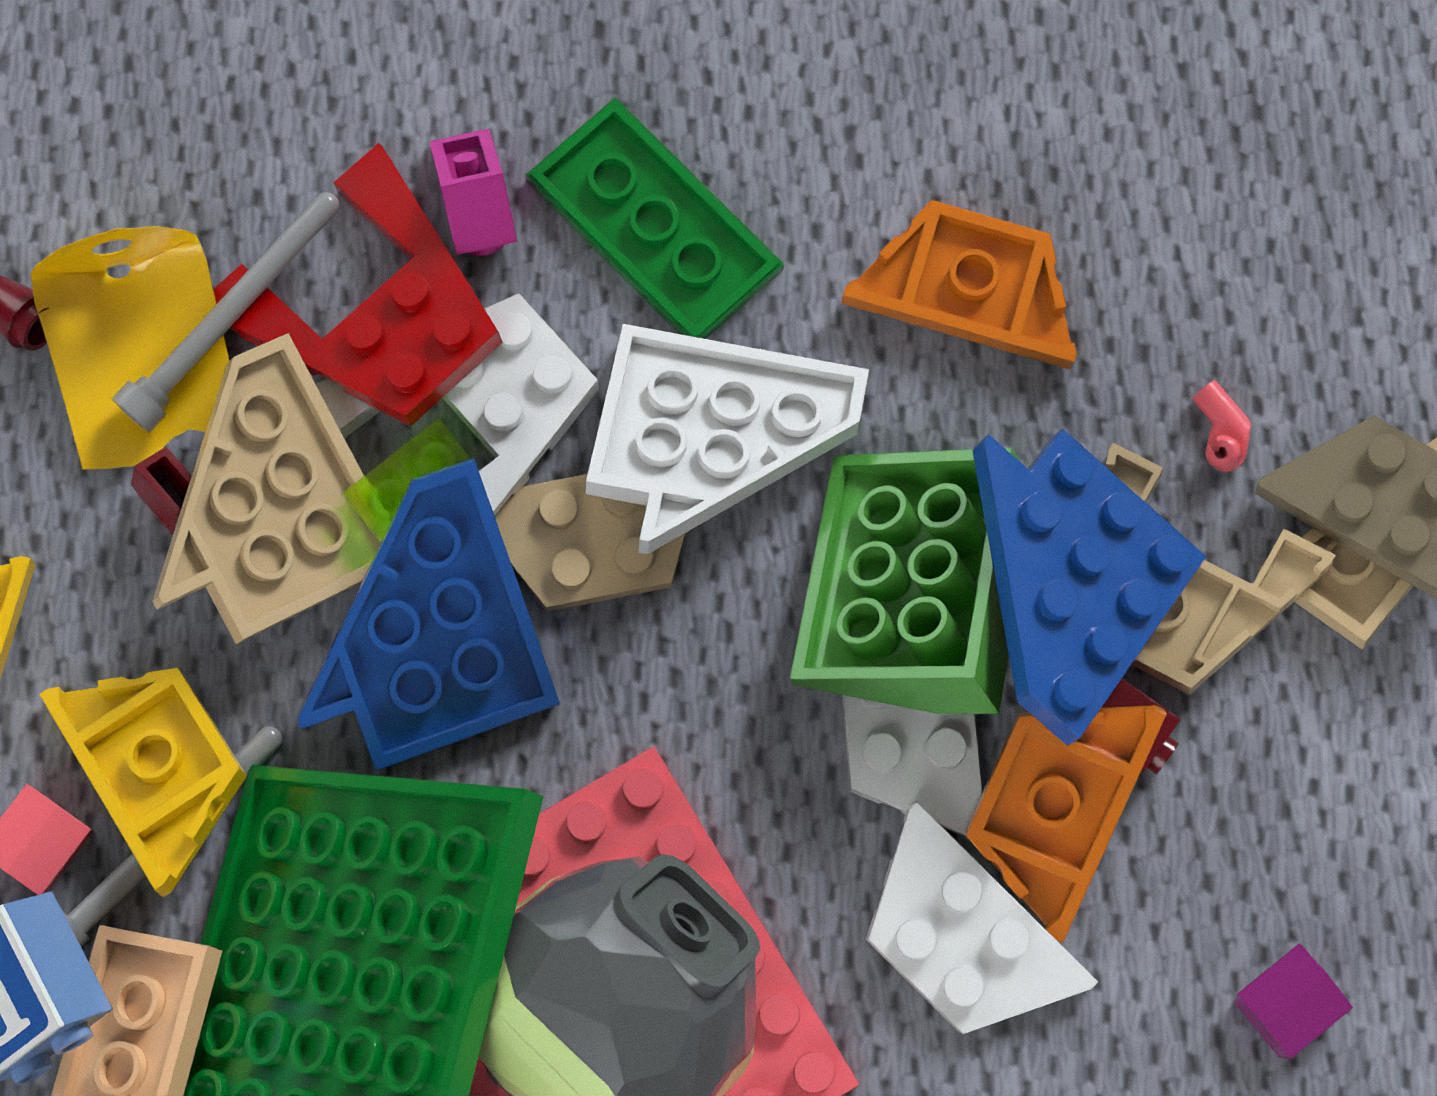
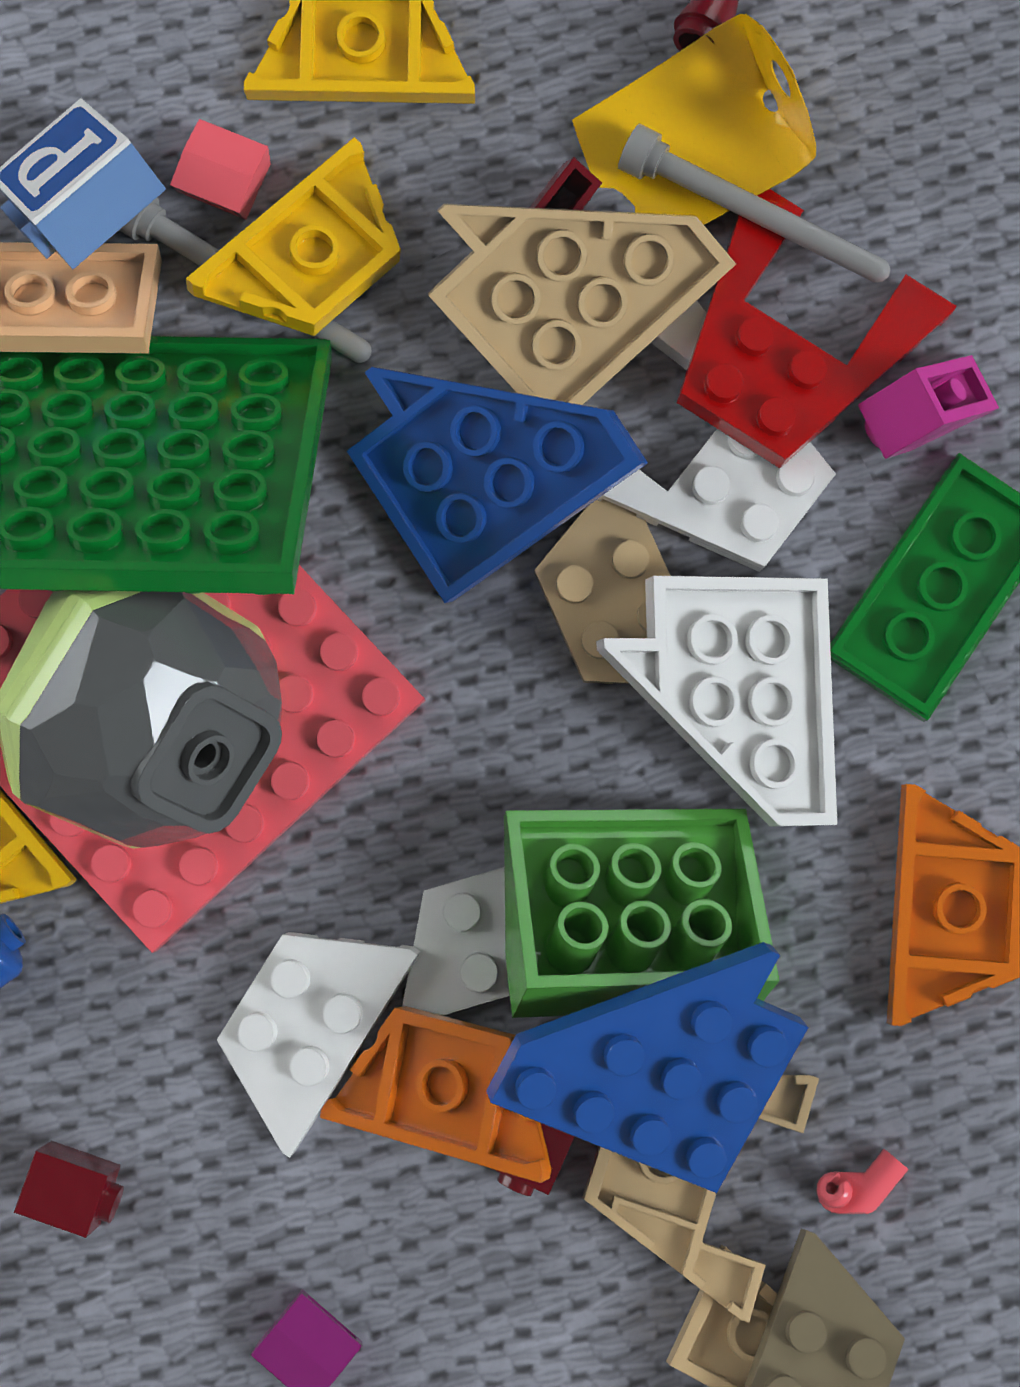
camera: 85 degrees right, 10 degrees up
(382, 488) = (648, 421): clear neon green slope -> none

